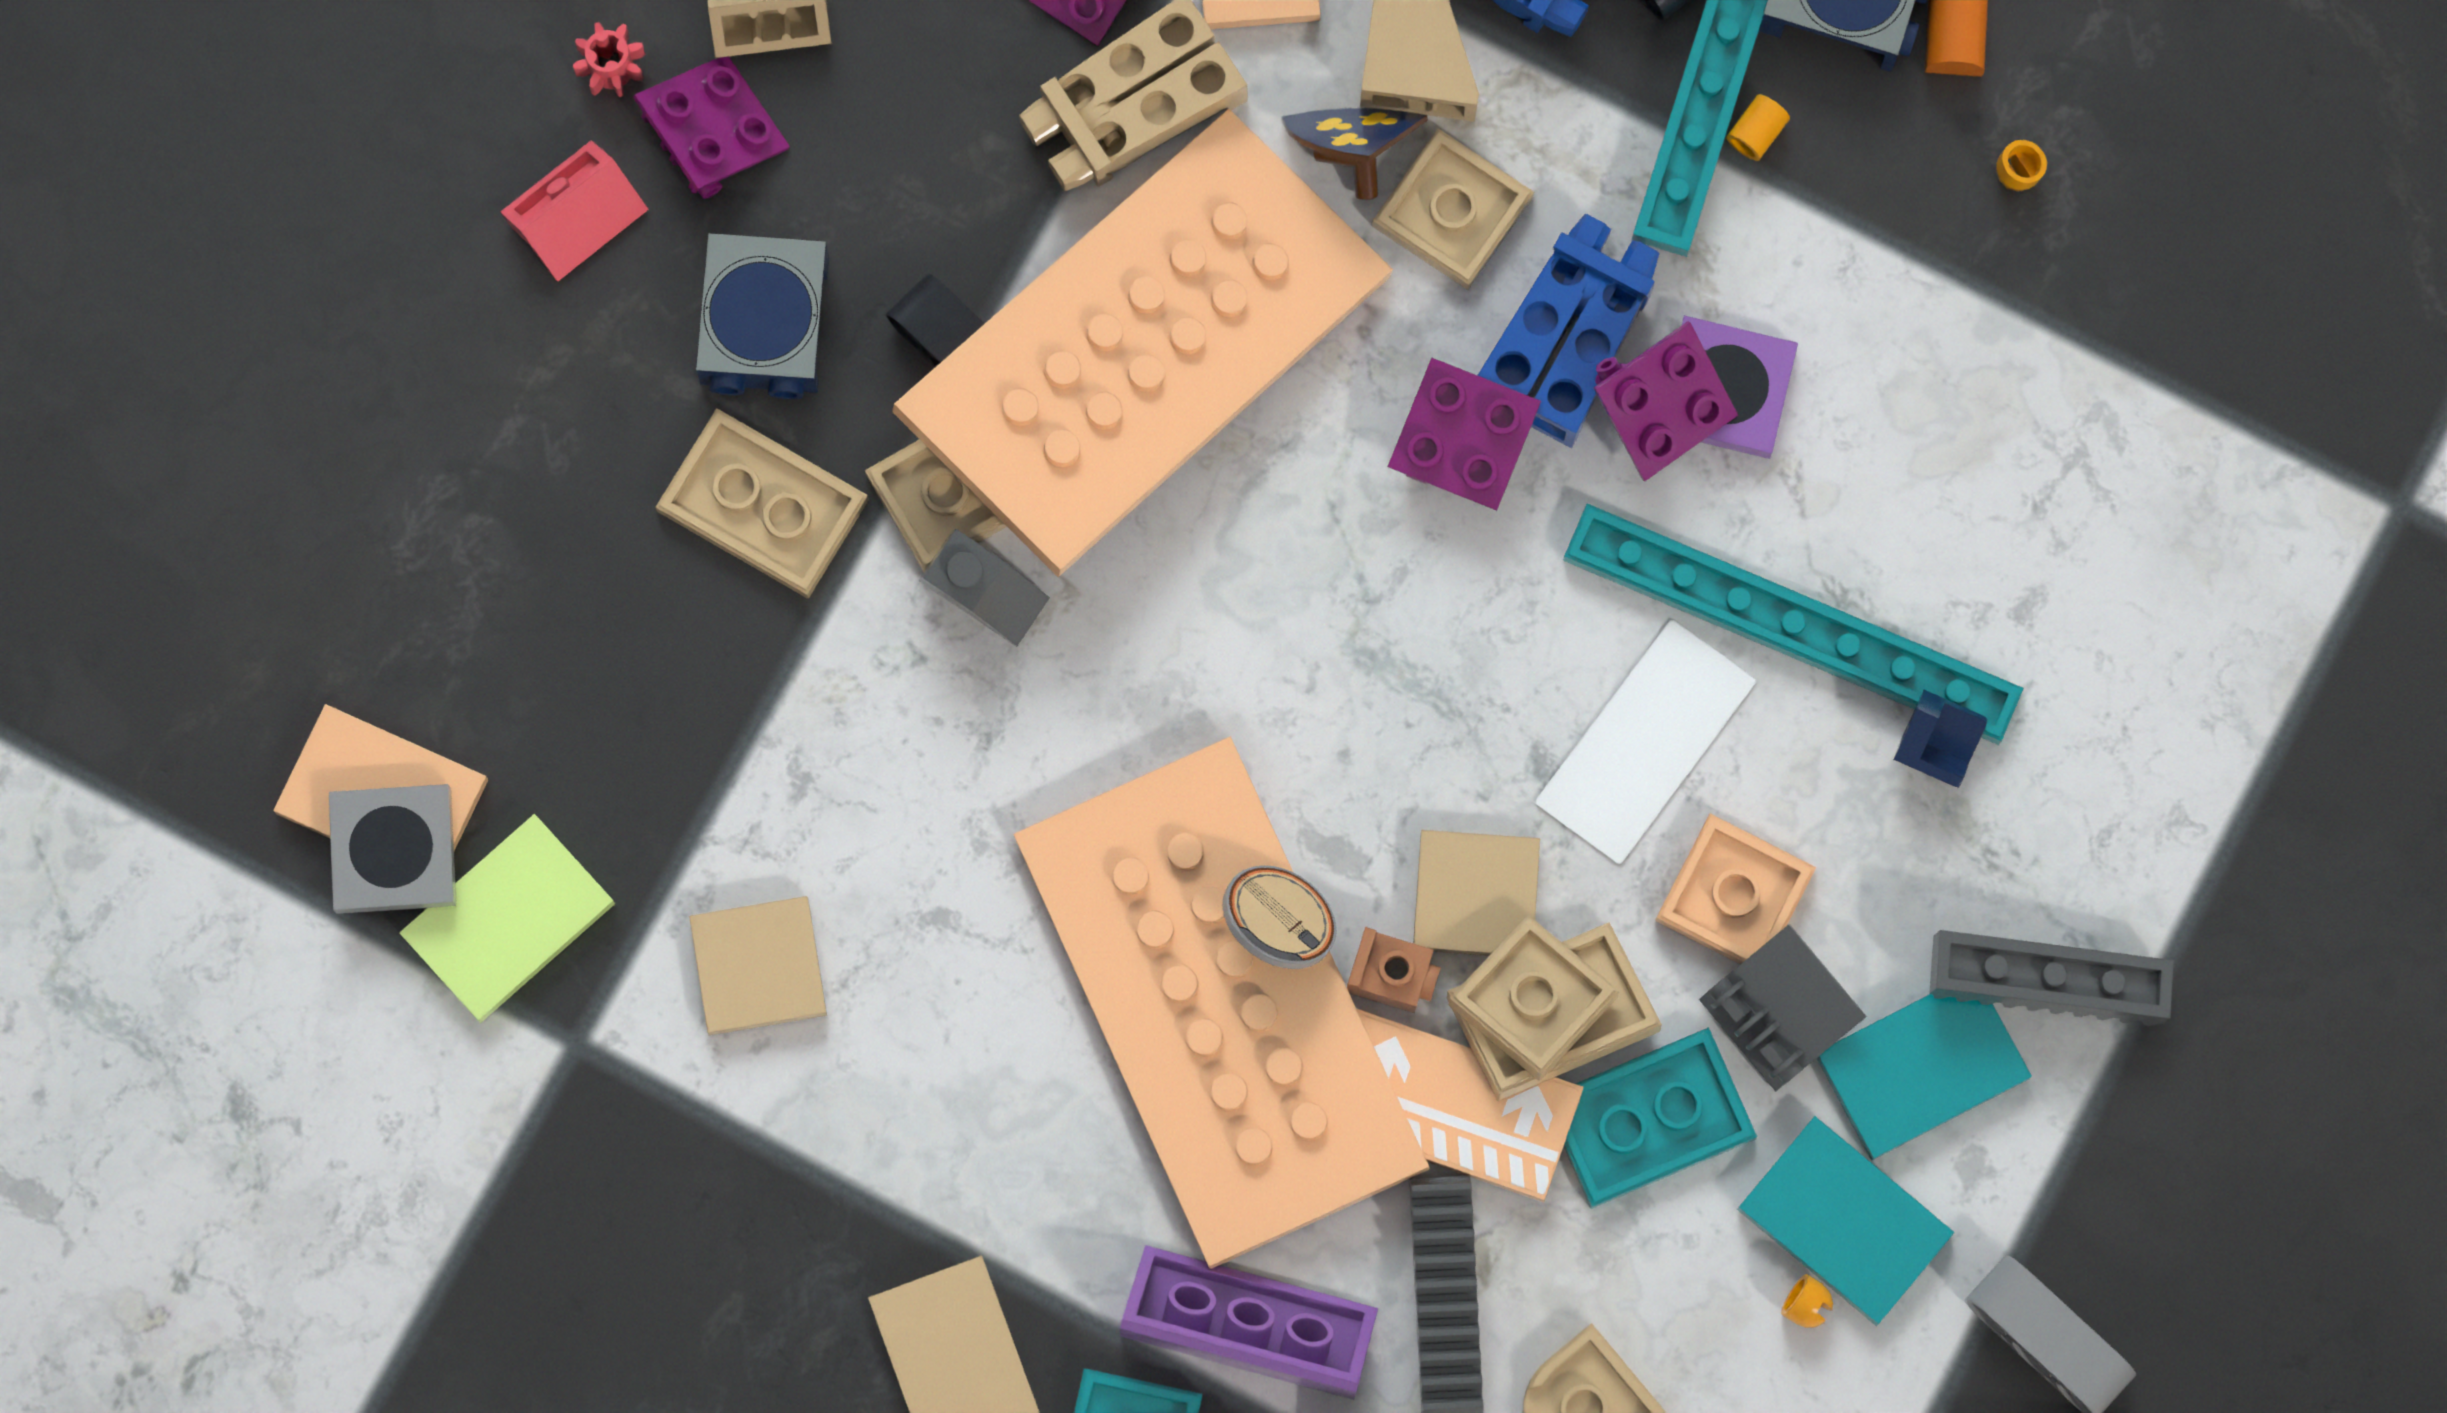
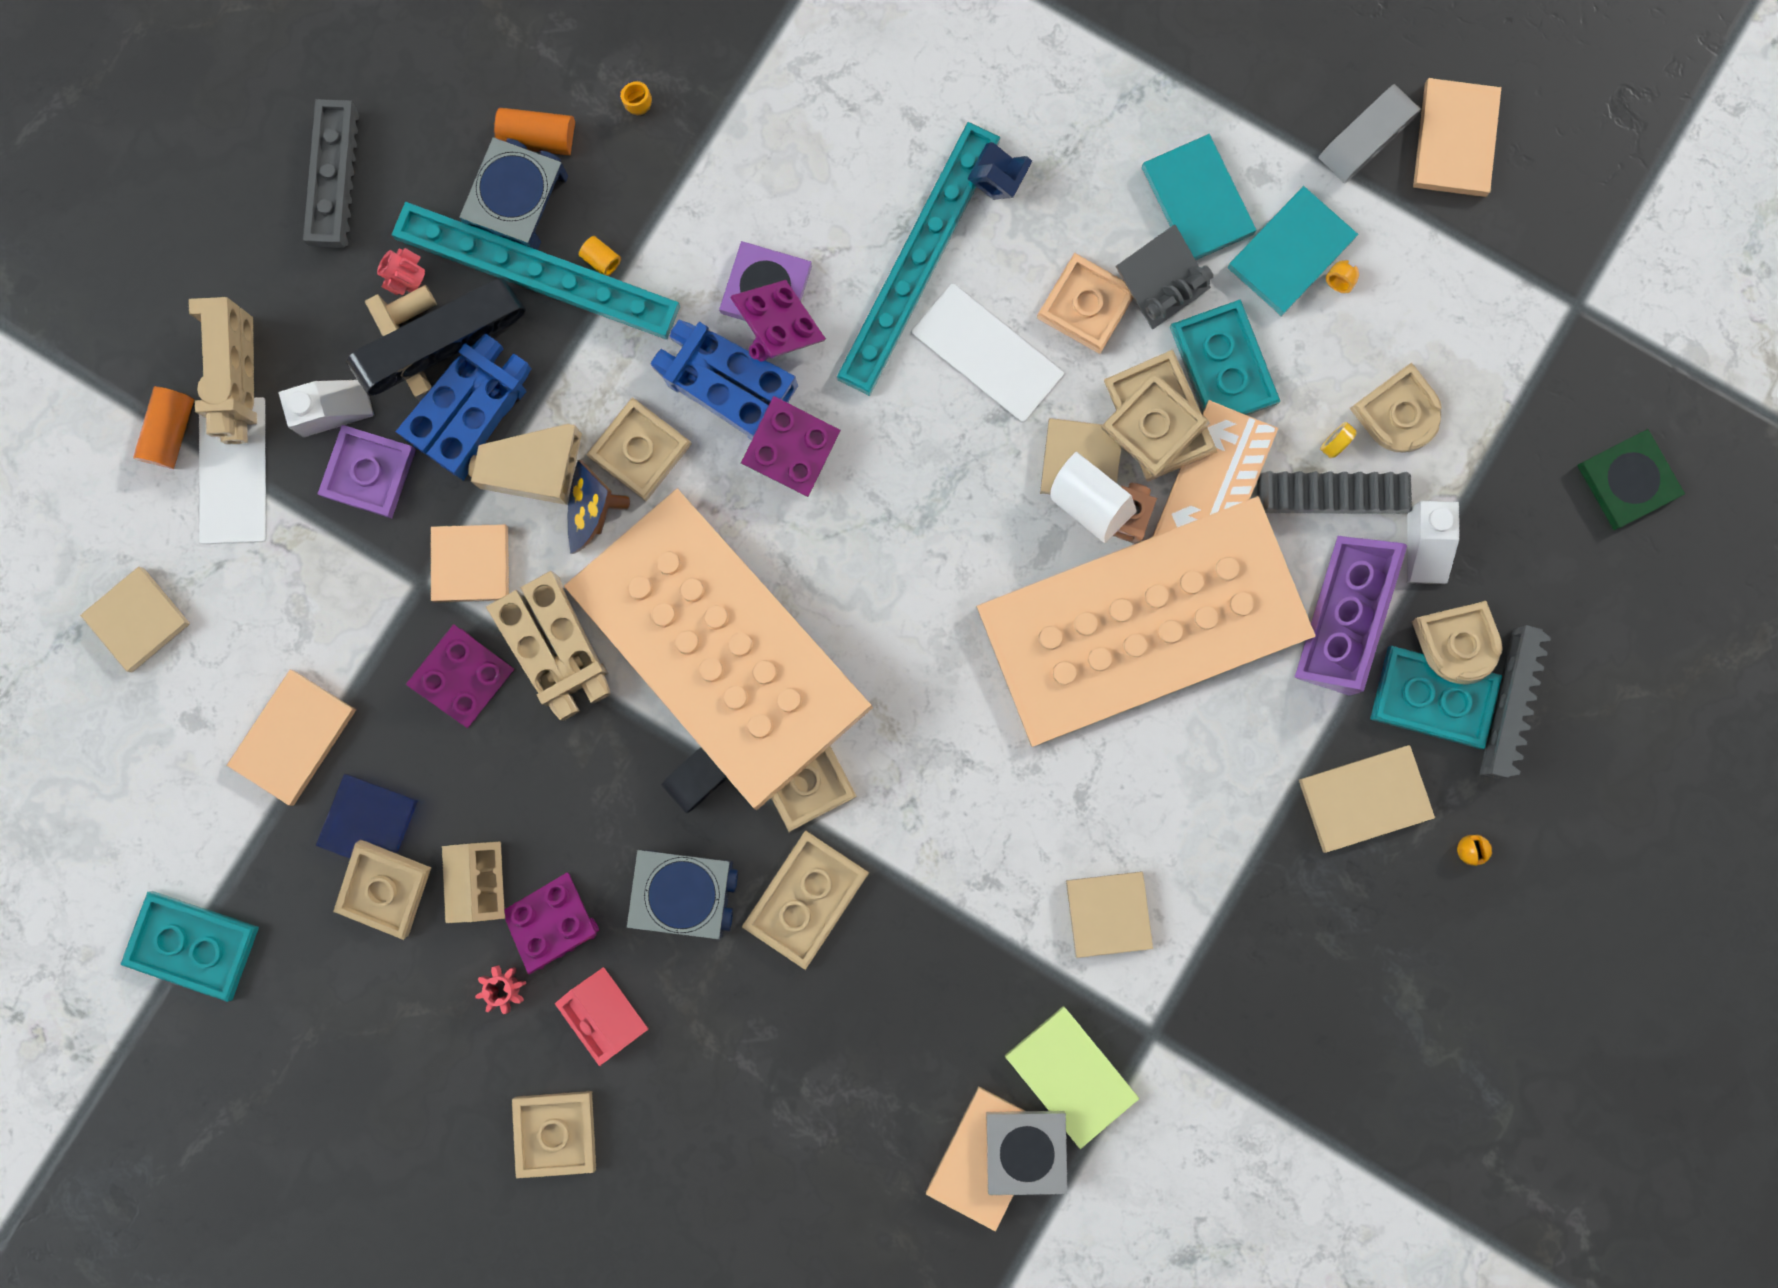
camera: 80 degrees left, 5 degrees up
(397, 153) = (554, 1134): none -> tan tile
(984, 587) = (871, 759): dark grey slope -> none
(1279, 917) = (1102, 578): piece -> none
(1407, 899) = (1092, 497): none -> white brick
(1531, 1299) = (1338, 440): none -> yellow tile
(2051, 977) = (1152, 114): dark grey gear -> none

